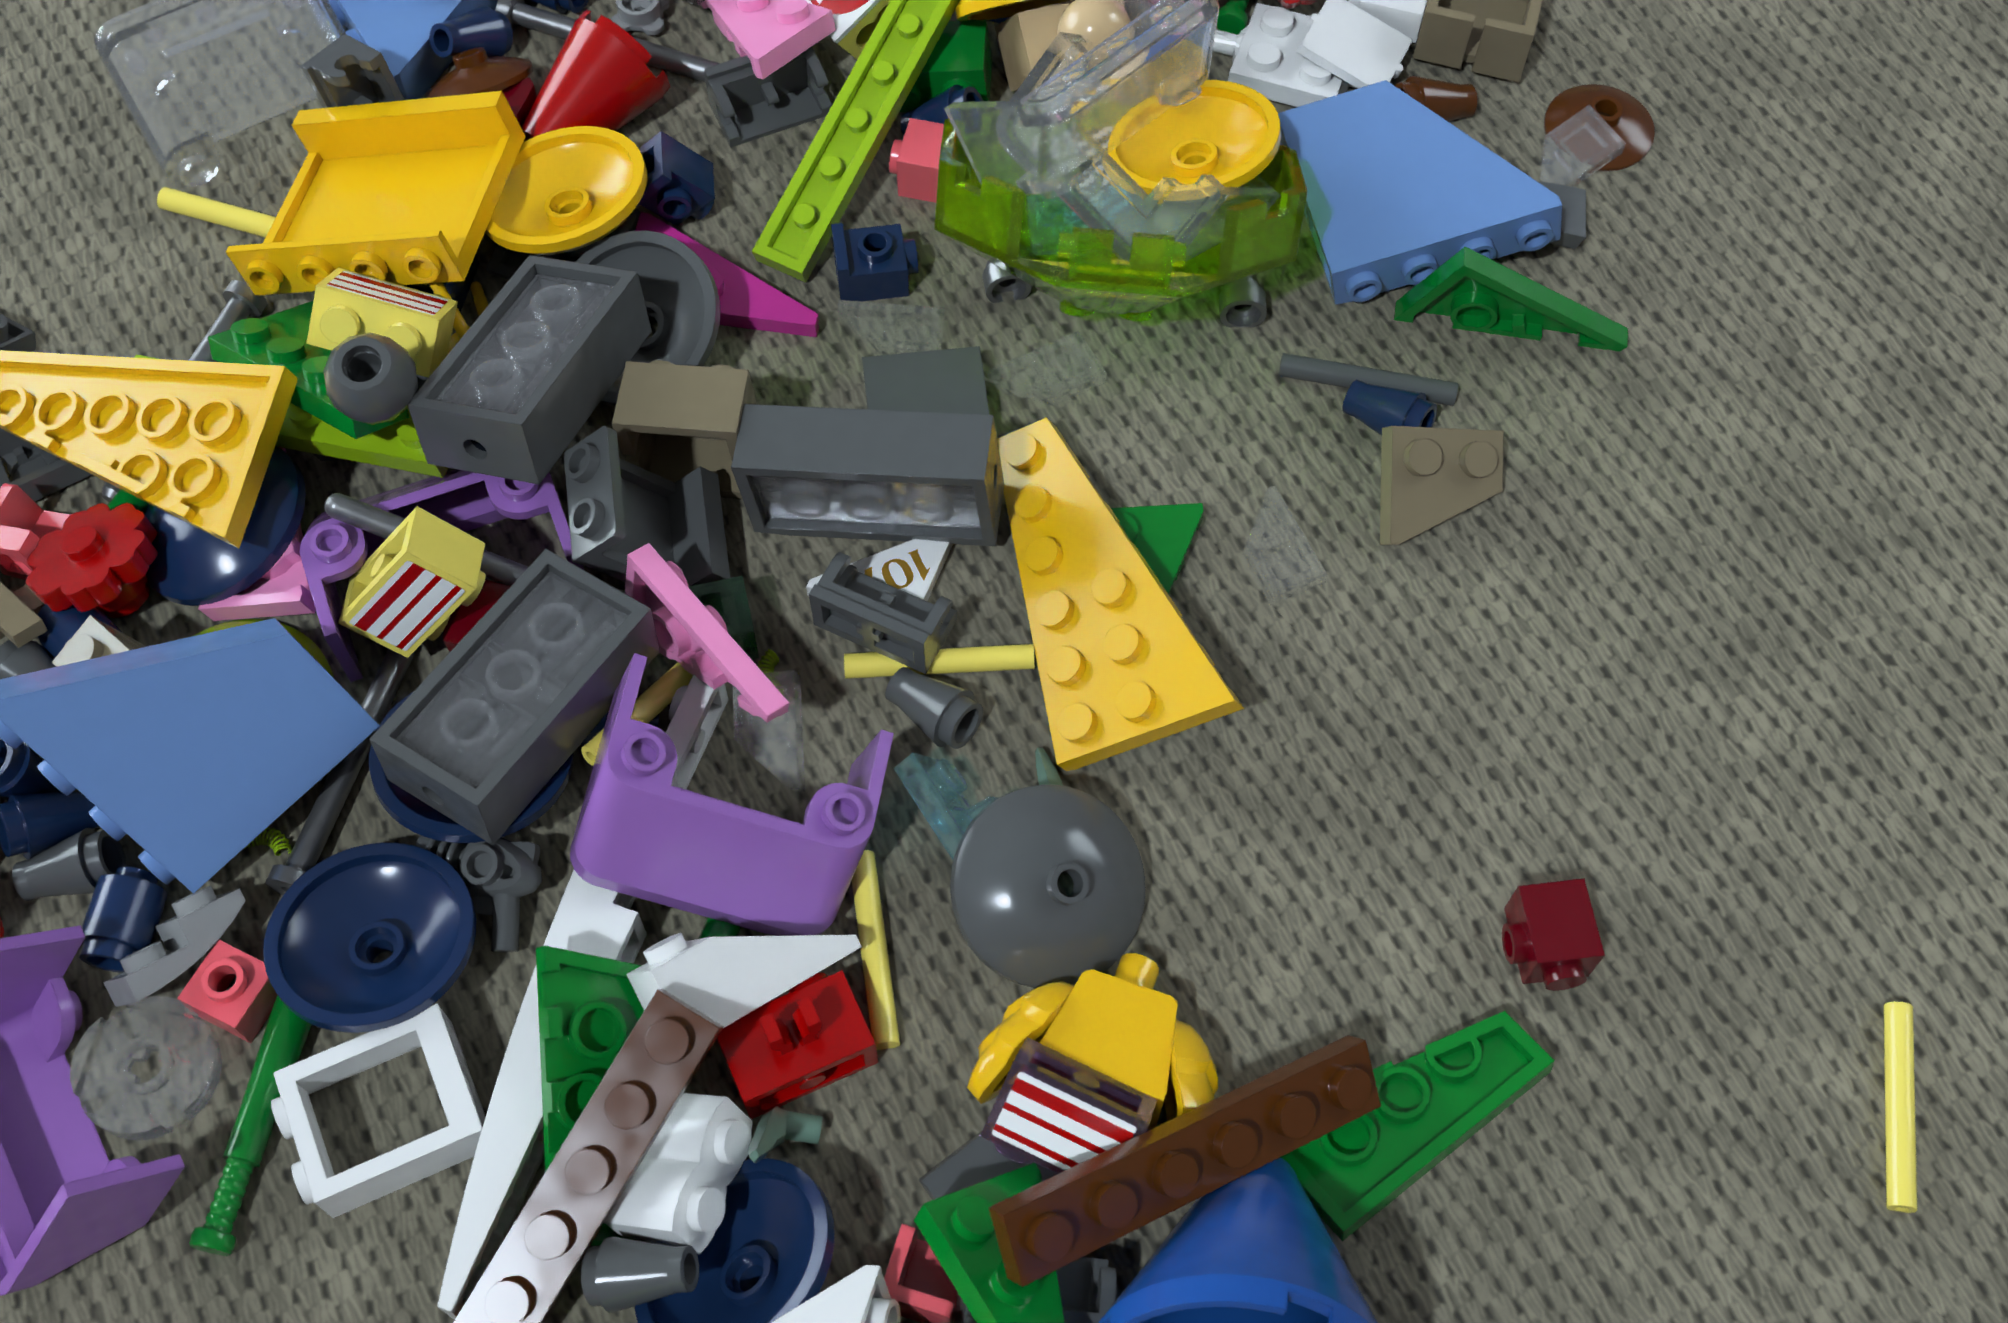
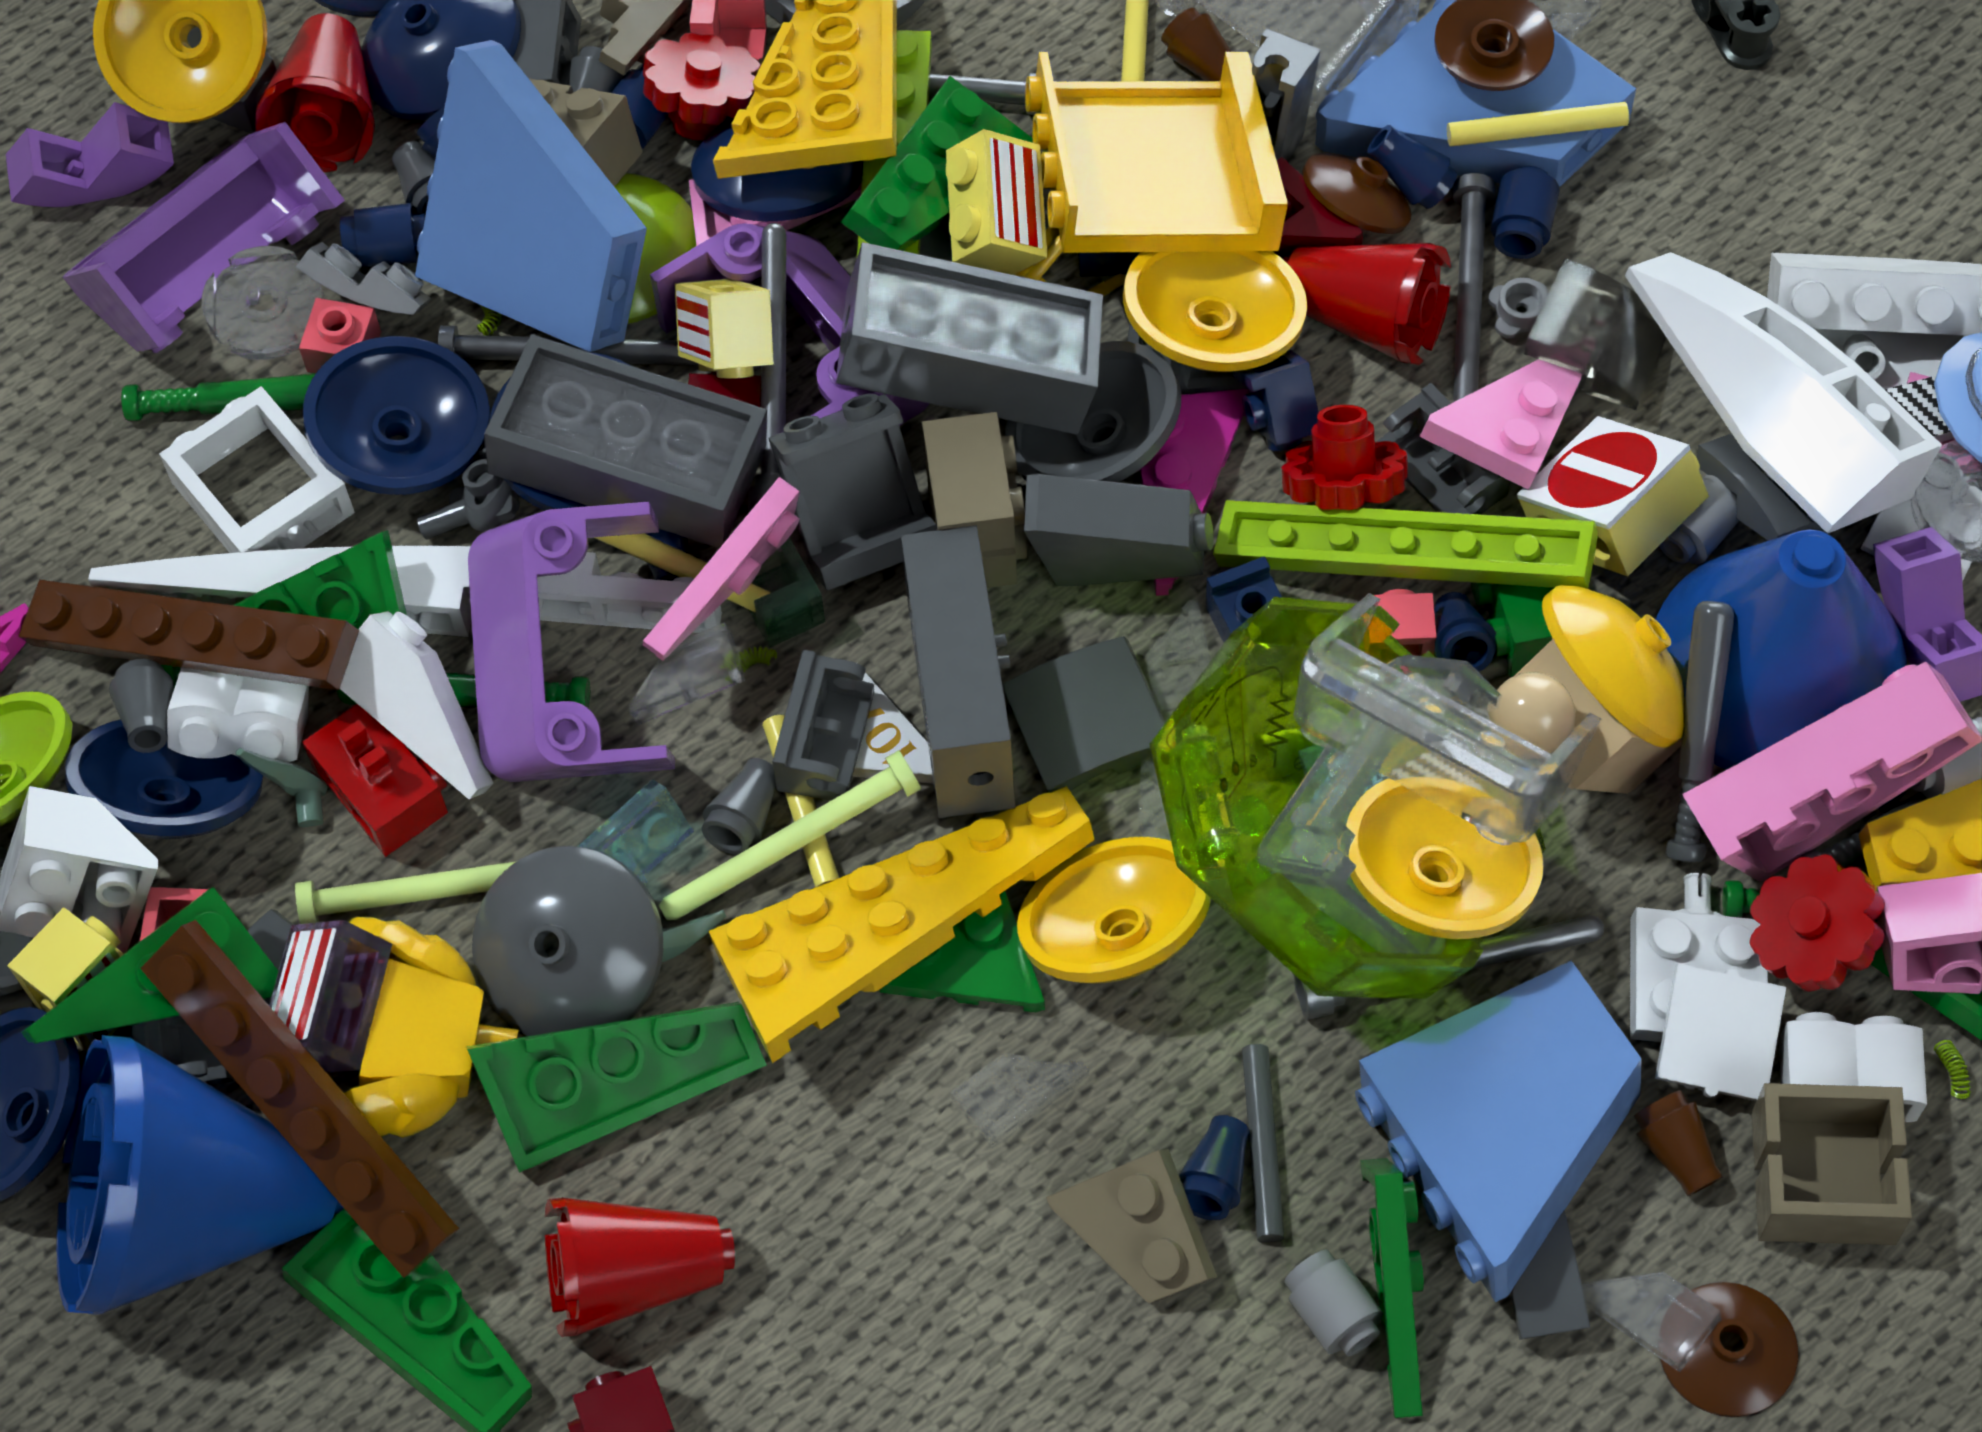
camera: 80 degrees right, 0 degrees up
(262, 160) = (1196, 44): none -> reddish brown cone
(370, 378) = (874, 203): dark grey piece -> none
(757, 150) = (1344, 463): none -> red plant
(768, 319) = (1114, 530): none -> dark grey slope
(874, 953) = (489, 822): light yellow bar -> none
(920, 1139) = (395, 891): none -> yellowish green bar
(956, 556) = (792, 838): none -> yellowish green bar
(1129, 392) = (1111, 912): none -> yellow dish
(1198, 889) = (595, 1079): none -> green wing
(1399, 903) = (628, 1260): none -> red cone
(1530, 356) = (1334, 1303): none -> light grey brick

